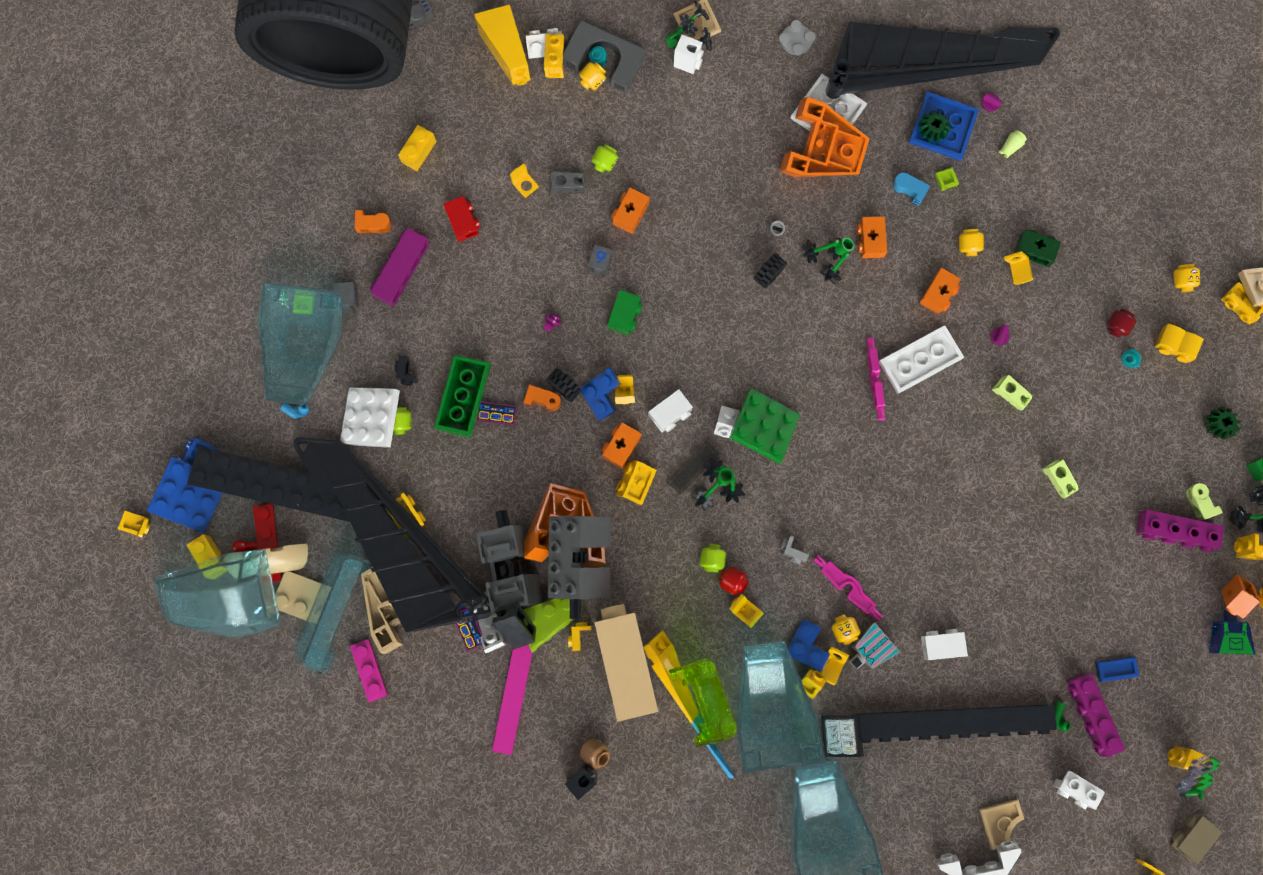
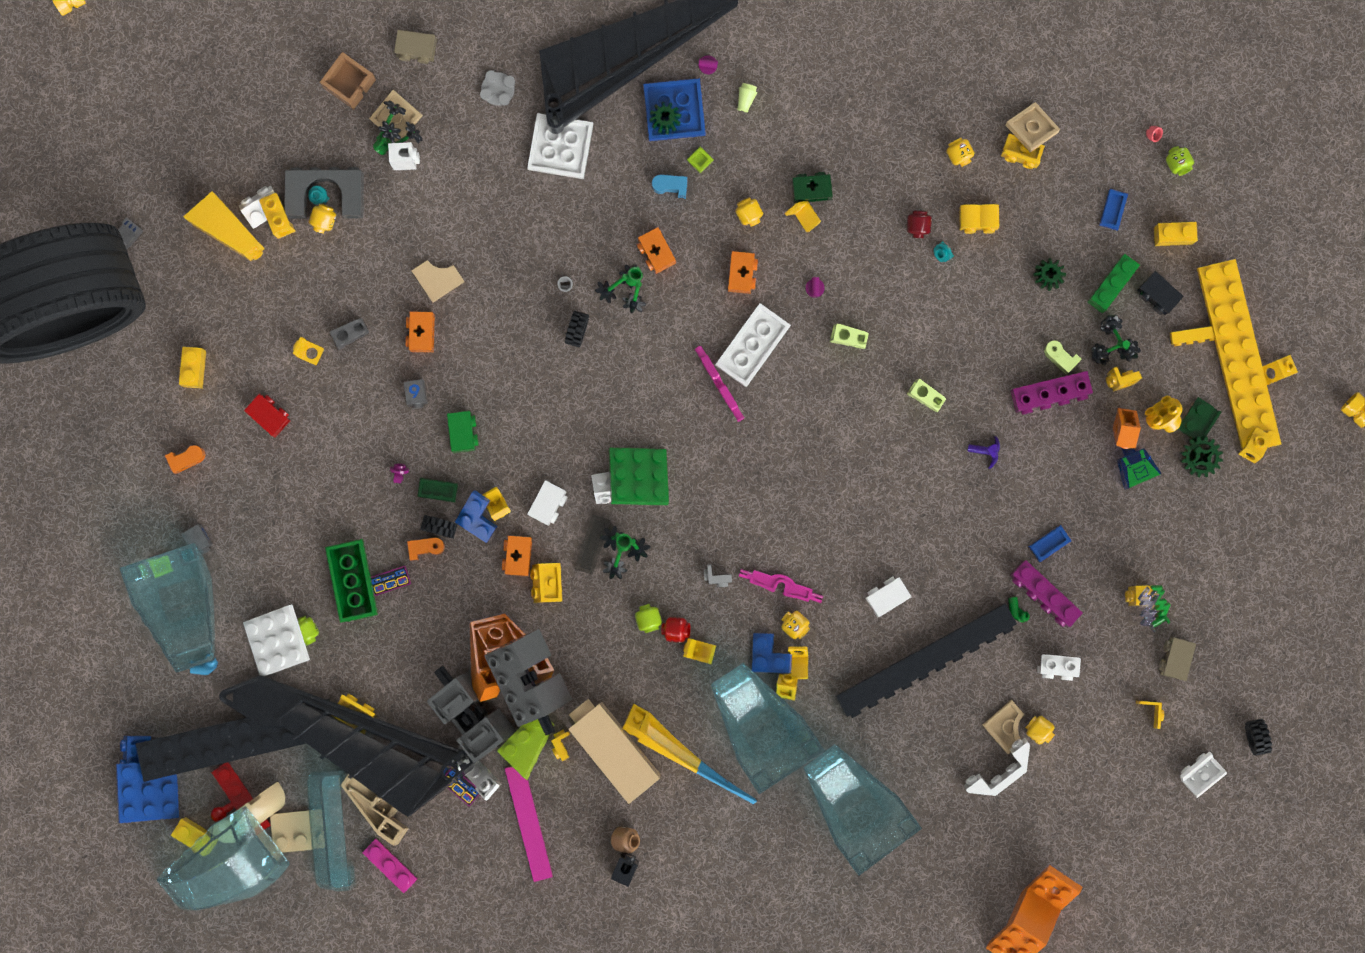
camera: 25 degrees left, 5 degrees up
(134, 524) = (112, 840): yellow bracket -> none
(400, 267) = (233, 488): magenta brick -> none
(401, 368) = (283, 582): black bracket -> none
(514, 625) = (500, 764): black brick -> none
(578, 353) = (437, 490): none -> dark green plate
(604, 158) = (372, 293): lime head -> none
(665, 174) = (437, 280): none -> tan tile
(717, 715) = (704, 744): clear neon green windscreen -> none
(831, 147) = (578, 183): orange wedge -> none
(842, 736) = (833, 719): tile -> none
(872, 648) = (826, 629): torso -> none
(1034, 842) = (1040, 730): none -> yellow head
(1101, 557) = (991, 450): none -> dark purple plant

